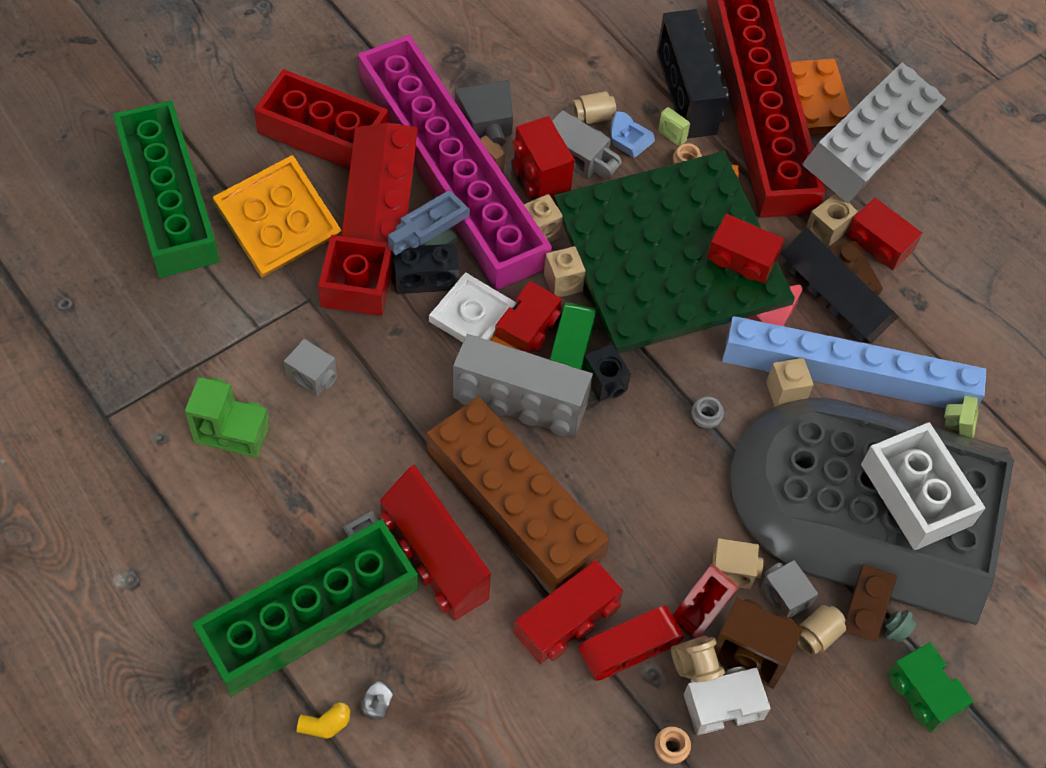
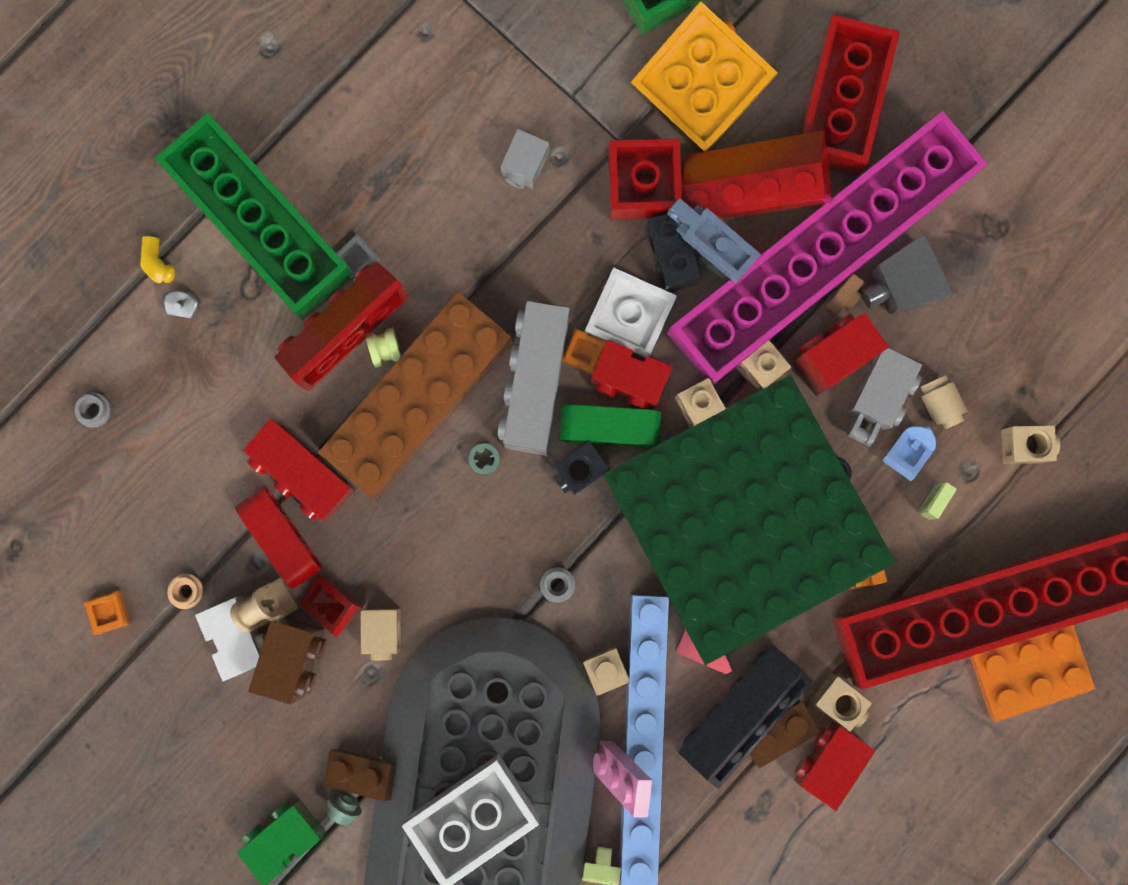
camera: 80 degrees right, 25 degrees up
(223, 422) = (442, 82): bright green brick -> none
(463, 513) = (383, 347): none -> yellowish green wheel
(582, 463) = (480, 449): none -> sand green bush
(638, 61) = (1015, 448): none -> tan brick
(685, 152) = (907, 519): light nougat plate -> none
(692, 72) = (1018, 510): black brick -> none
(745, 248) = (745, 599): red piece -> none
(788, 589) = (361, 689): light grey brick -> none
(821, 630) = (324, 726): tan brick -> none
(873, 132) = (970, 745): light grey brick -> none
(888, 370) = (623, 778): none -> bright pink plate

